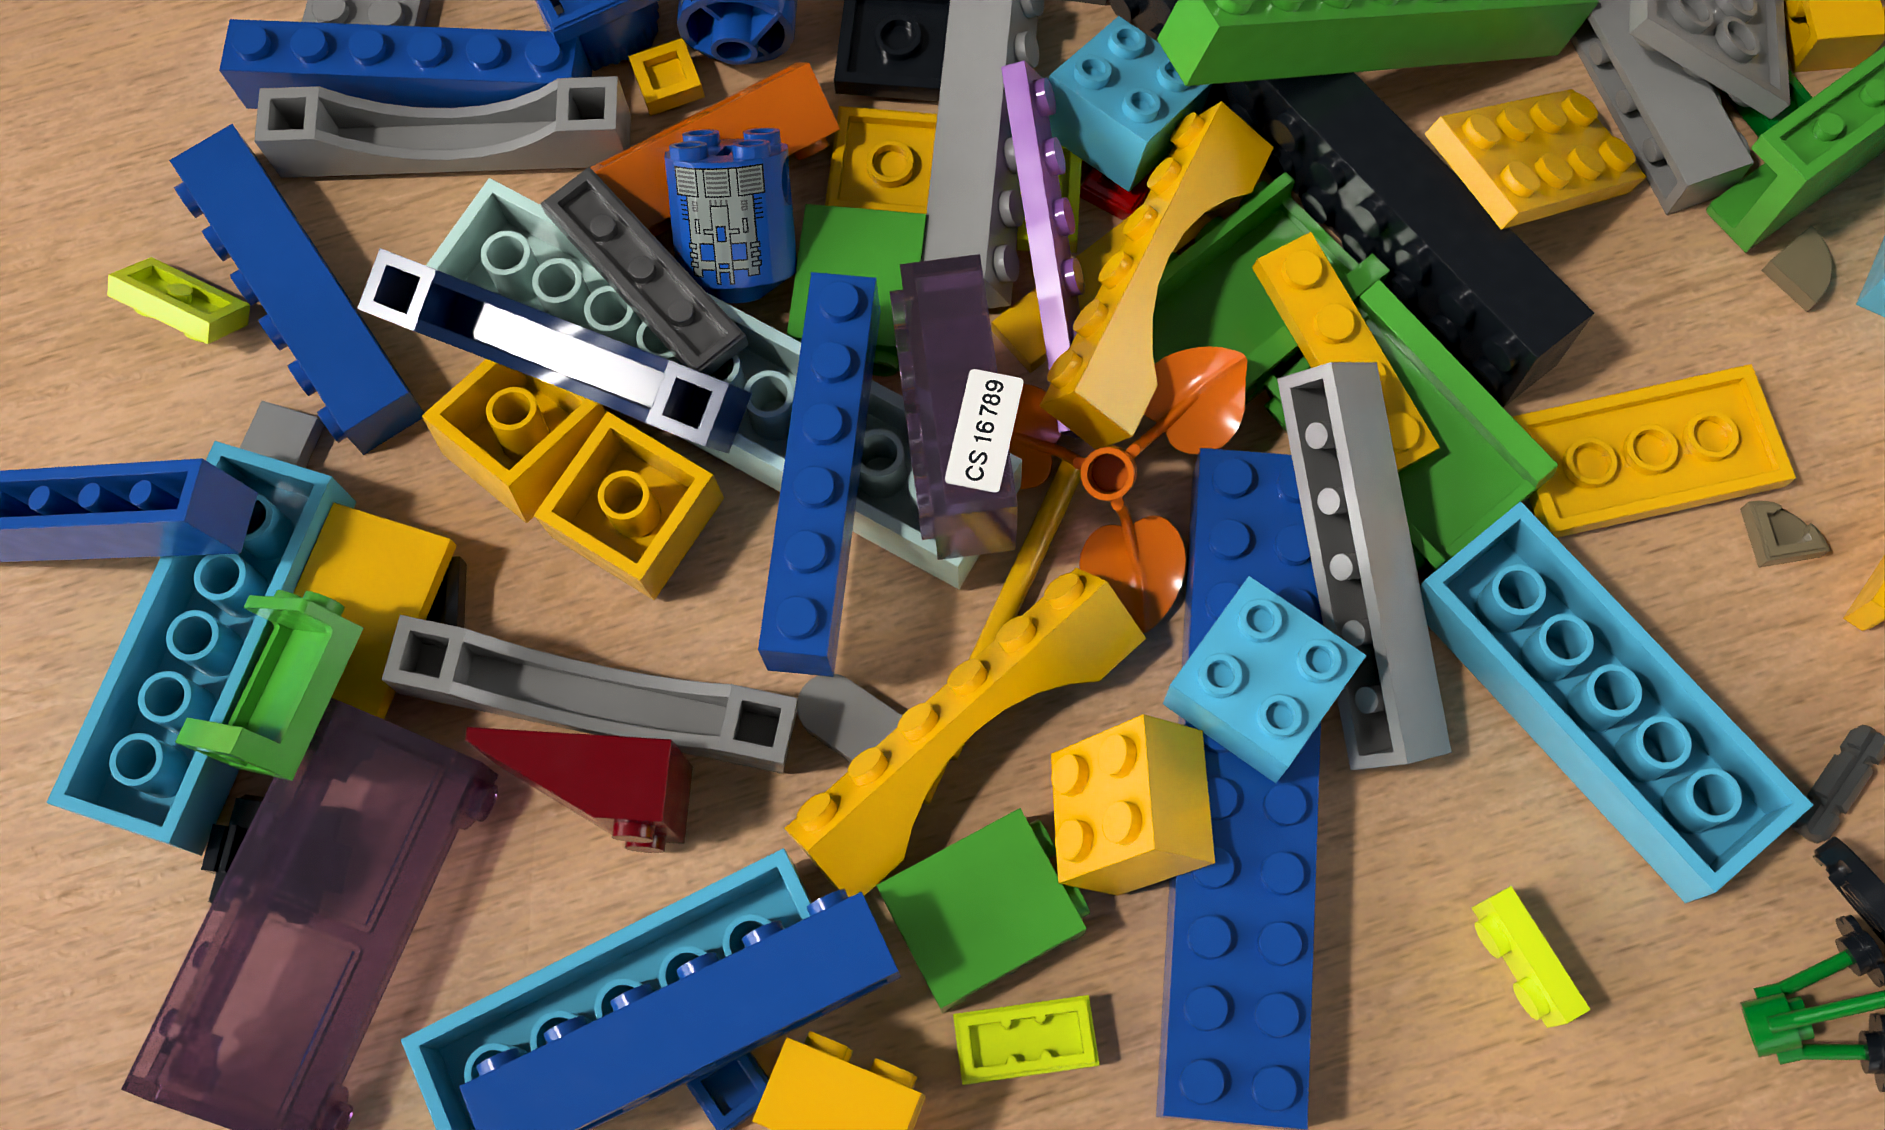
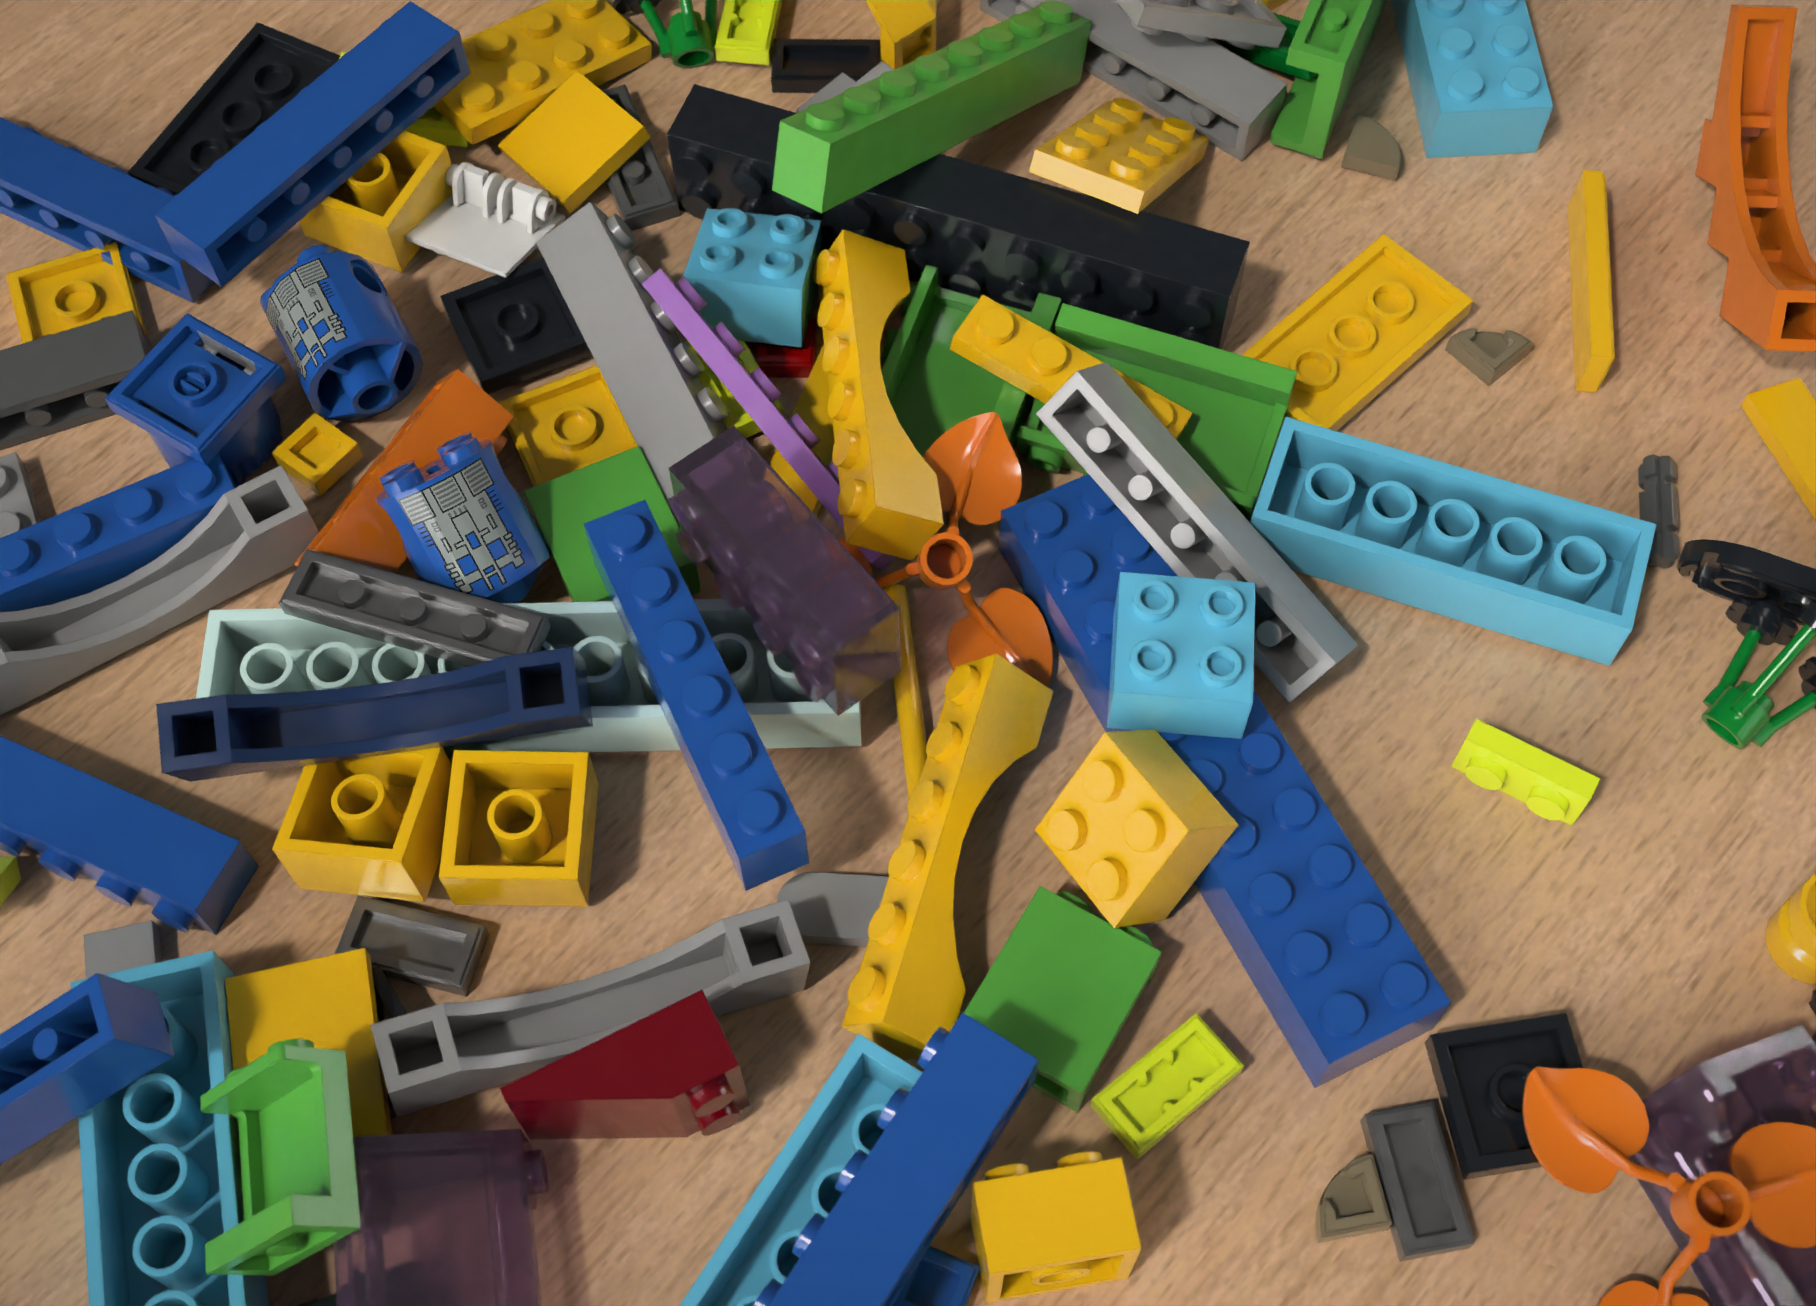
camera: 35 degrees left, 10 degrees down
(501, 552) = (415, 944): none -> flat silver tile
(984, 430) = (831, 562): white sticker -> none

